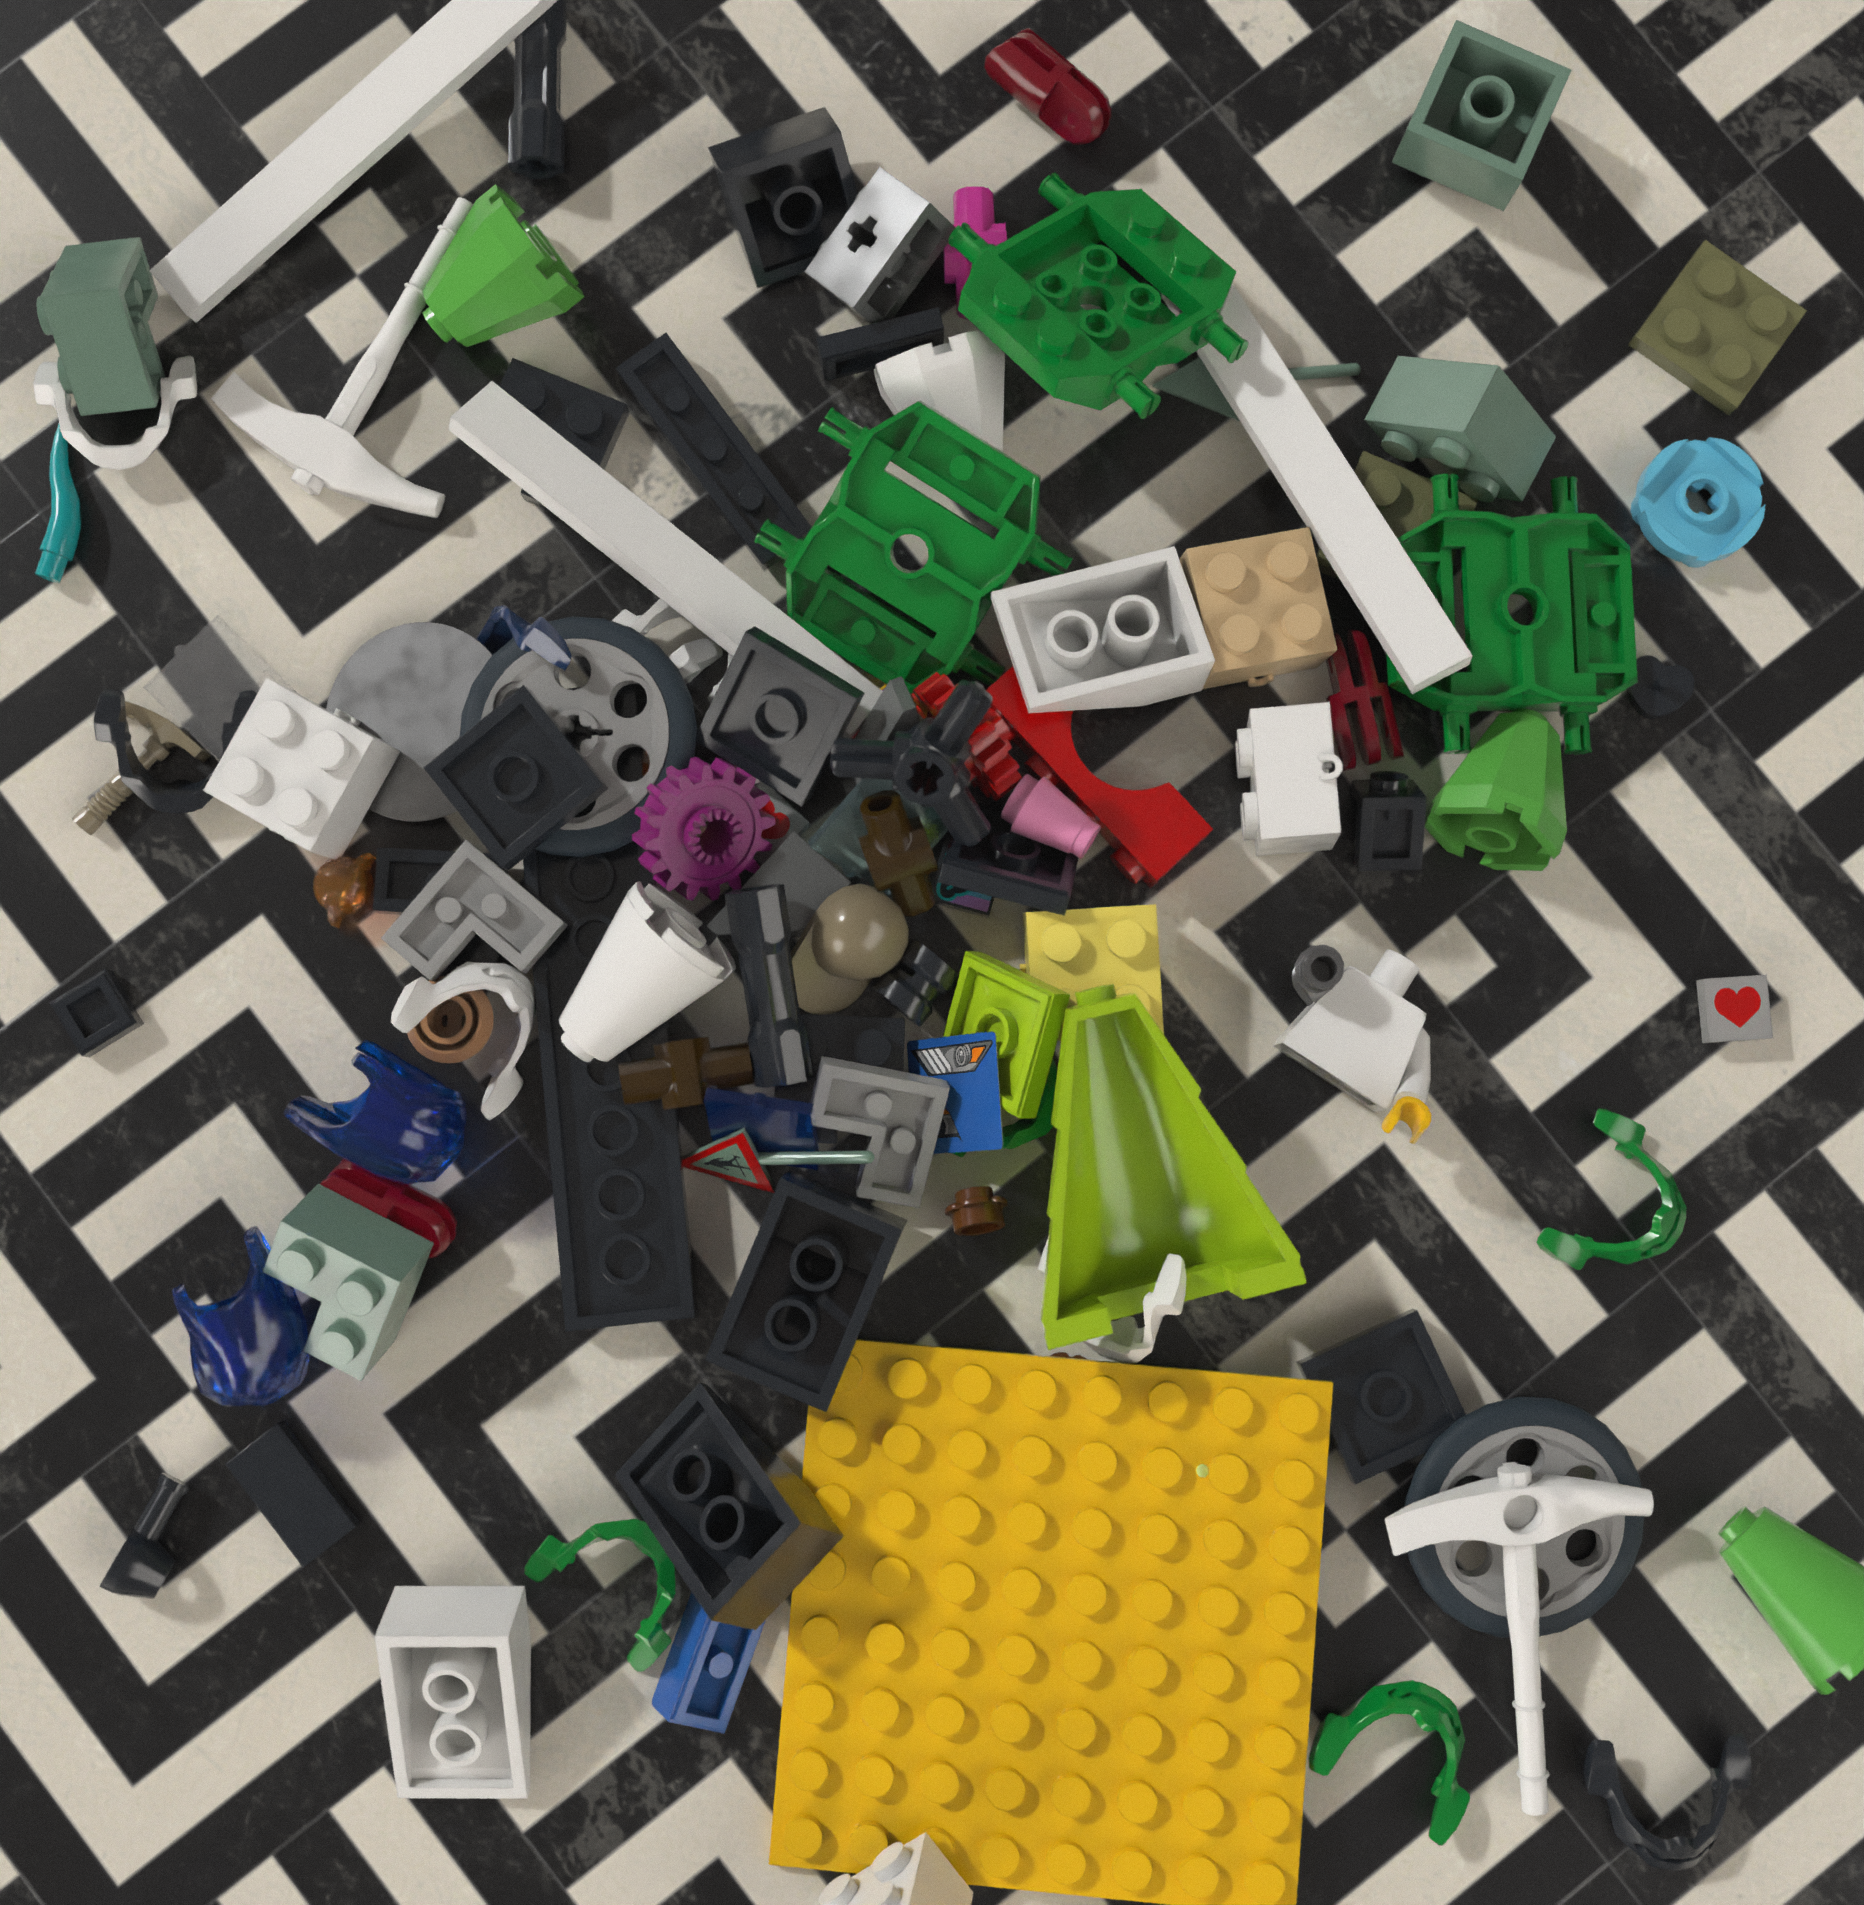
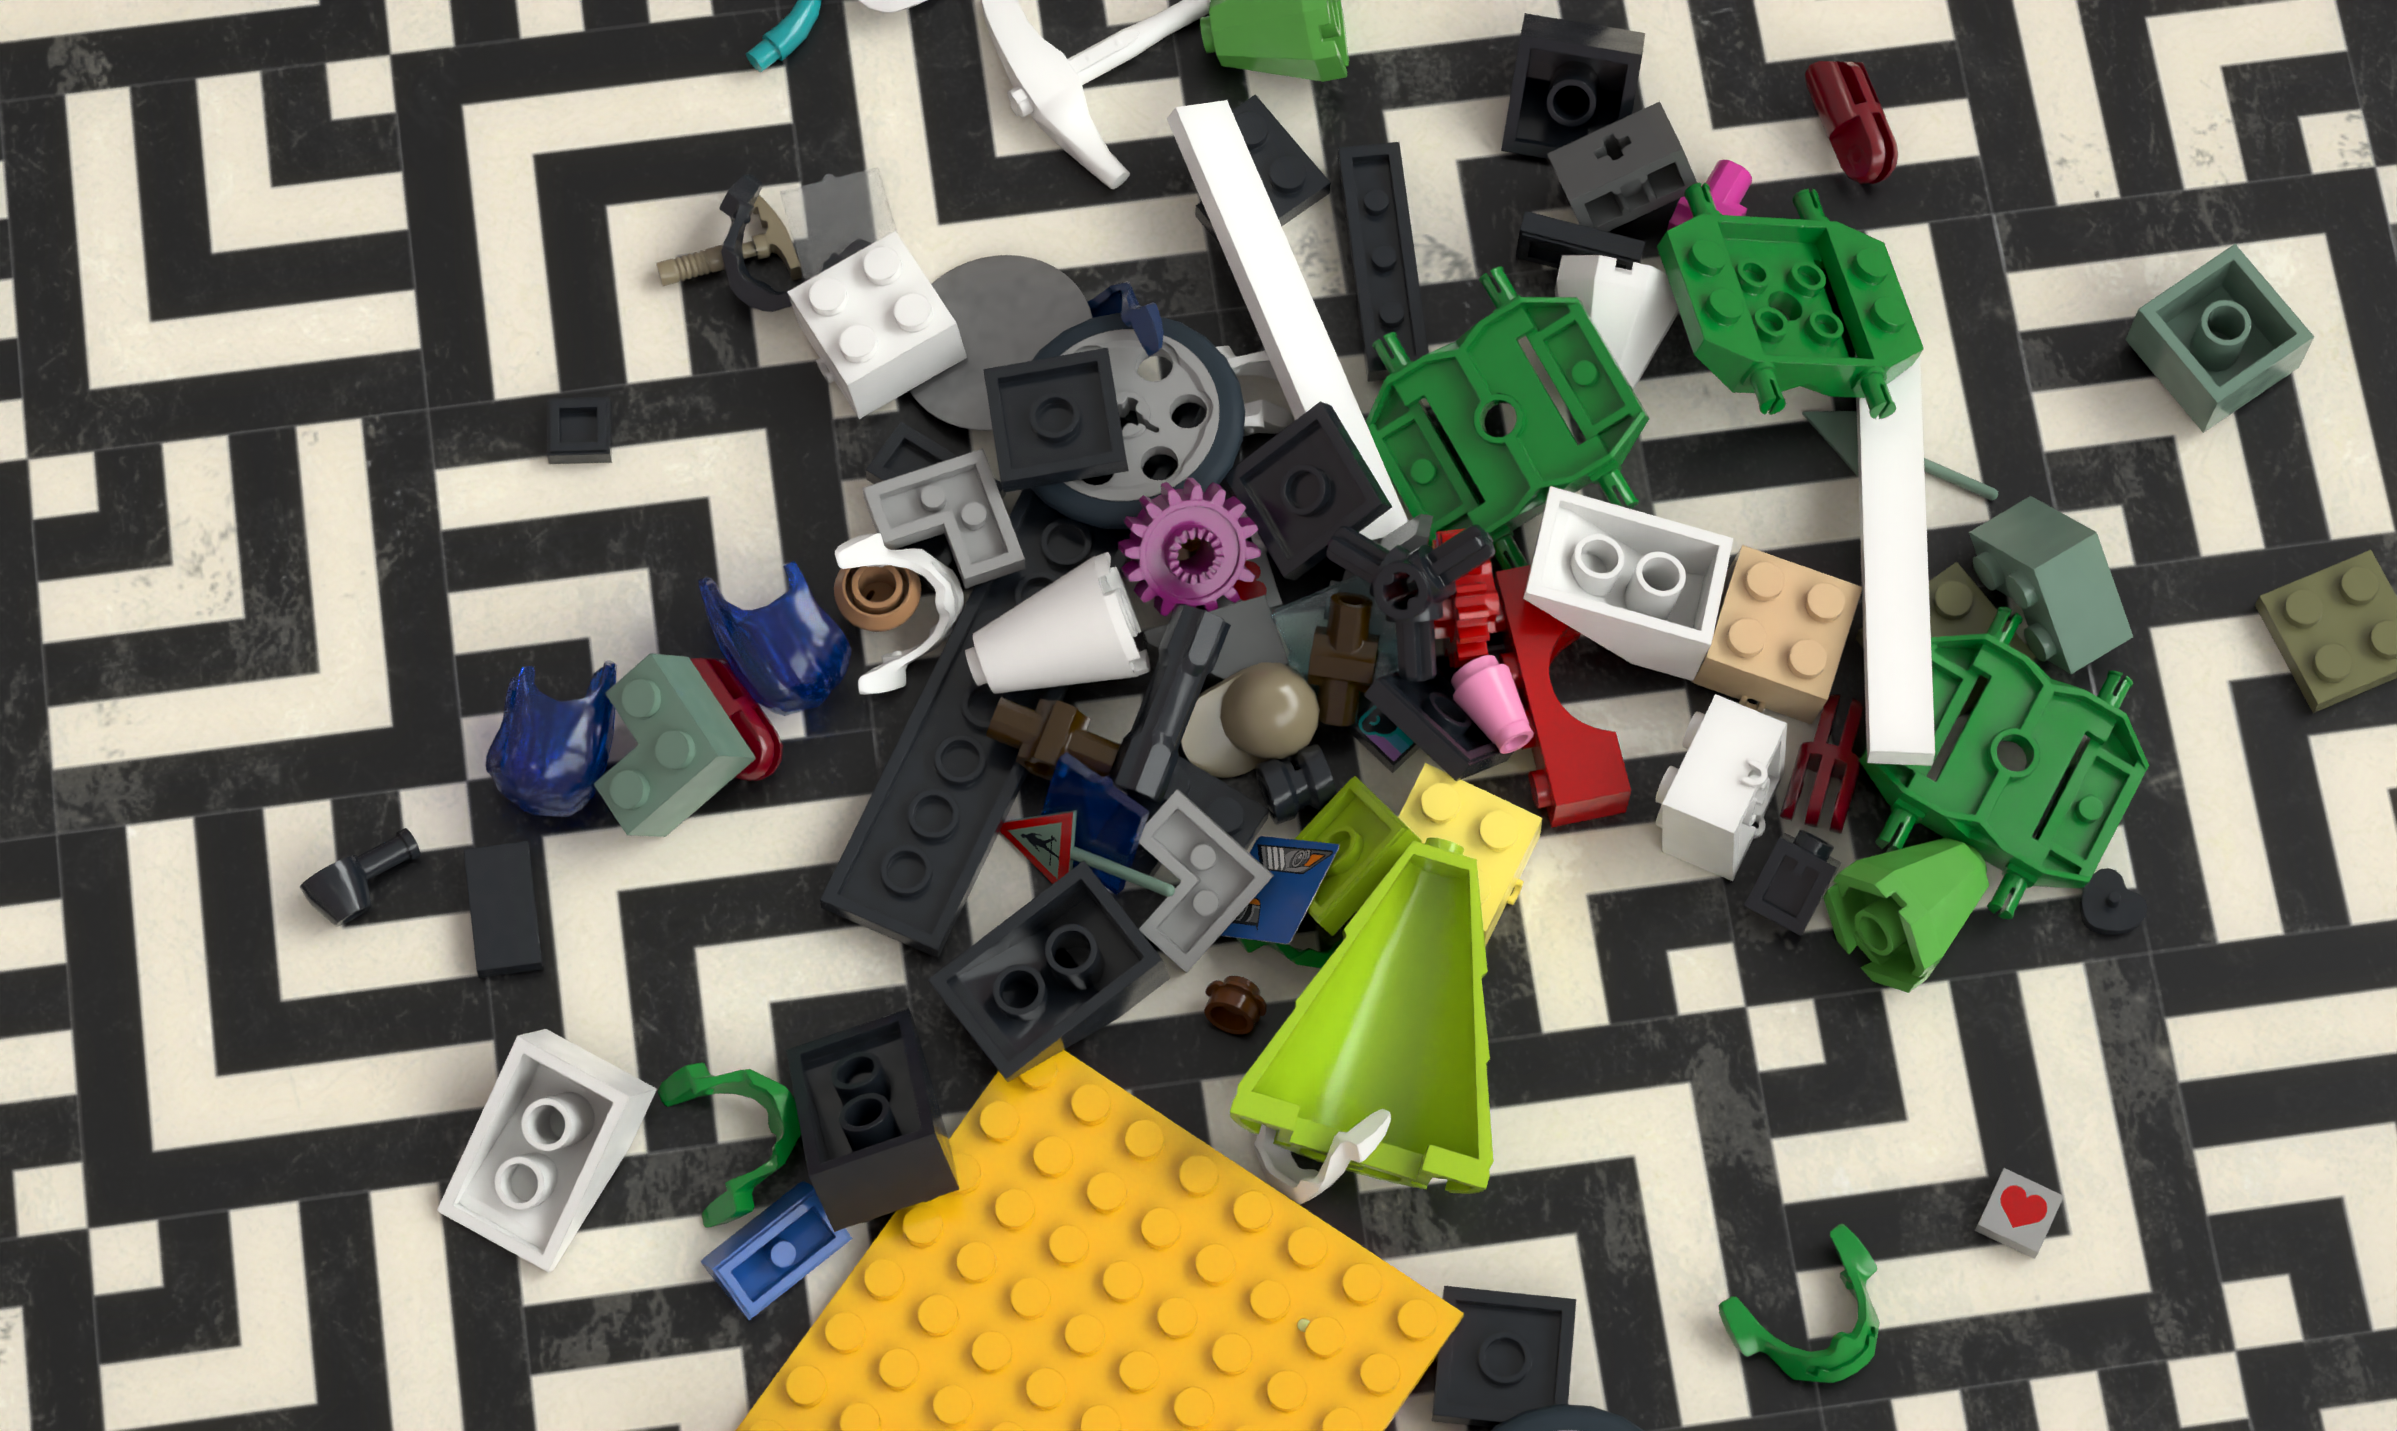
camera: 30 degrees right, 15 degrees down
(344, 886) = (851, 441): clear orange piece -> none
(1363, 1034) = (1663, 1034): white torso -> none
(1664, 509) = (2221, 796): medium azure plate -> none

